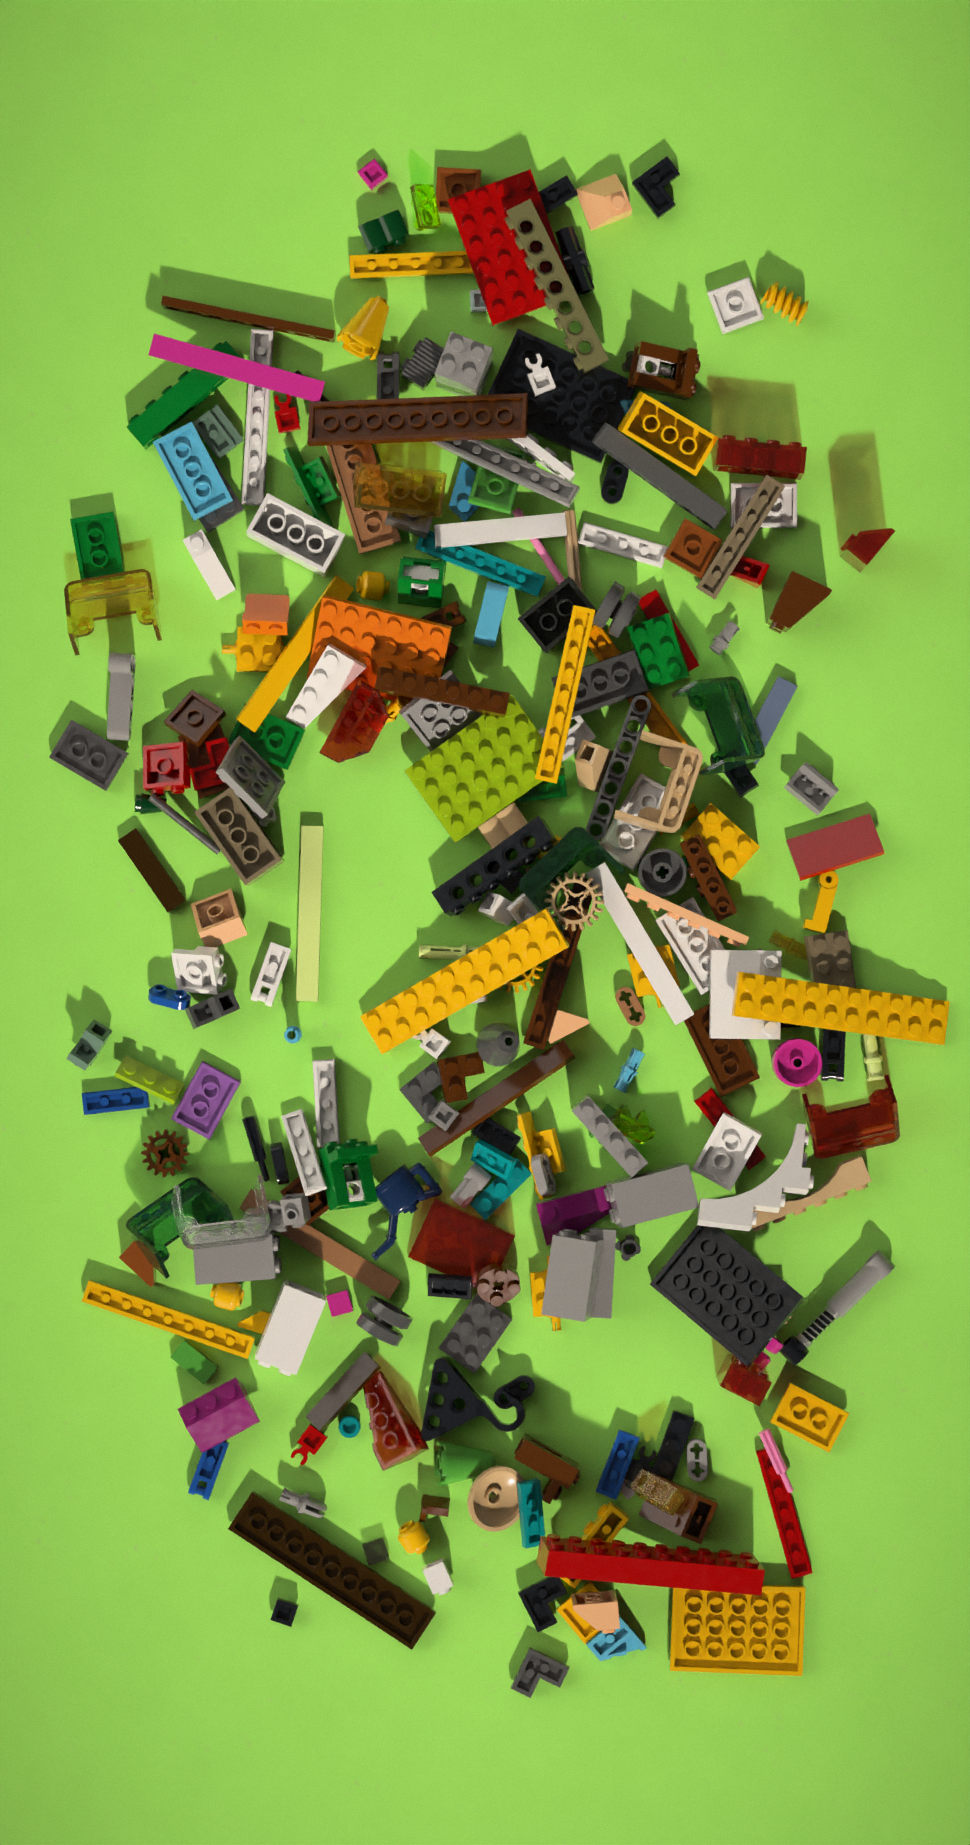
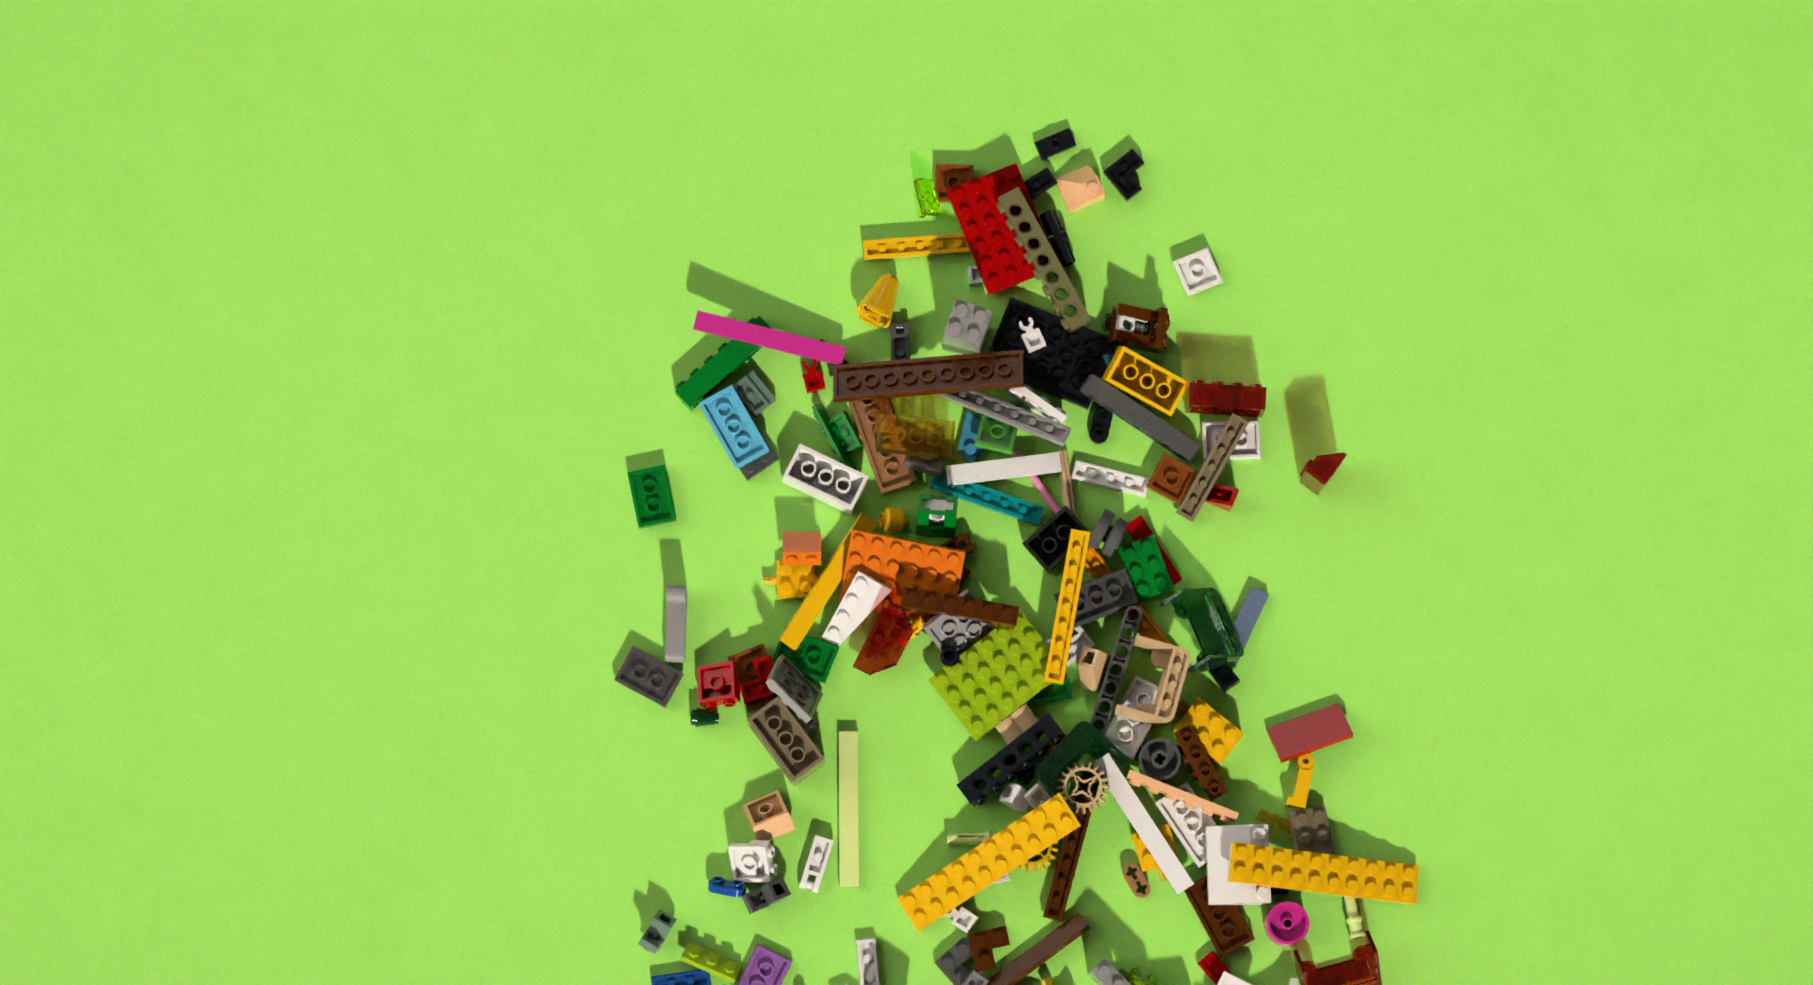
camera: 10 degrees left, 10 degrees down
(108, 598) = (664, 539): clear yellow windscreen -> none
(152, 870) = (707, 776): dark brown tile -> none
(195, 718) = (742, 640): reddish brown plate -> none
(204, 839) = (736, 733): flat silver bar -> none
(209, 564) = (749, 507): white slope -> none
(248, 319) = (777, 297): reddish brown tile -> none
(257, 423) = (787, 386): white tile -> none
(287, 1034) = (841, 919): medium azure pin -> none
(372, 174) = (880, 172): dark pink tile -> none
(384, 232) = (892, 219): dark green brick -> none
(423, 364) = (930, 330): dark grey brick -> none
(429, 746) = (949, 657): none -> black plate
(491, 614) = (998, 542): medium azure beam -> none
(498, 1044) = (1021, 918): dark grey cone -> none
(564, 1024) = (1080, 896): light nougat slope -> none
(577, 147) = (1055, 144): none -> black plate
(629, 1070) = (1138, 937): medium azure pin -> none
(725, 636) = (1201, 557): light grey pin -> none
(785, 303) = (1241, 268): yellow piece -> none
(795, 601) = (1264, 520): reddish brown slope -> none
(811, 788) = (1286, 682): light grey bracket -> none
(833, 1053) = (1318, 915): black plate -> none

